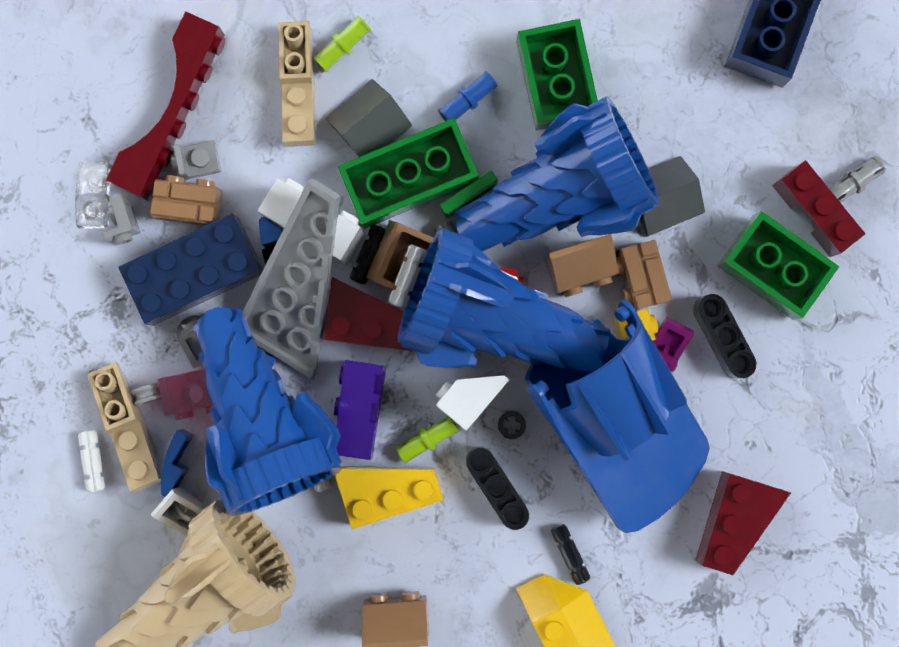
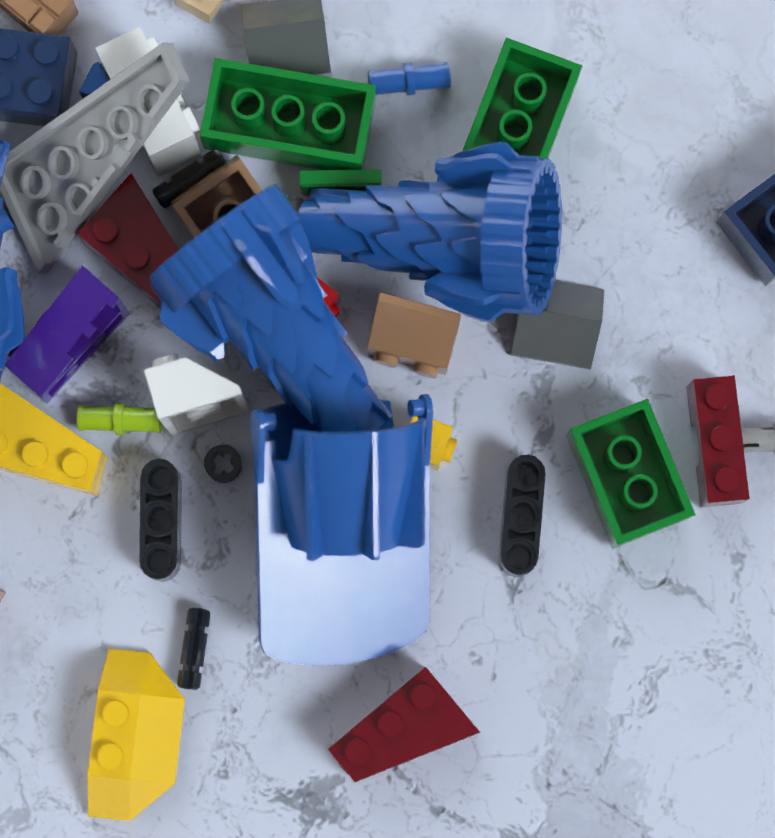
camera: 25 degrees right, 5 degrees down
(407, 276) = (208, 218): white axle -> none
(643, 275) = (474, 392): medium nougat brick -> none
(672, 341) = (457, 485): magenta bracket -> none

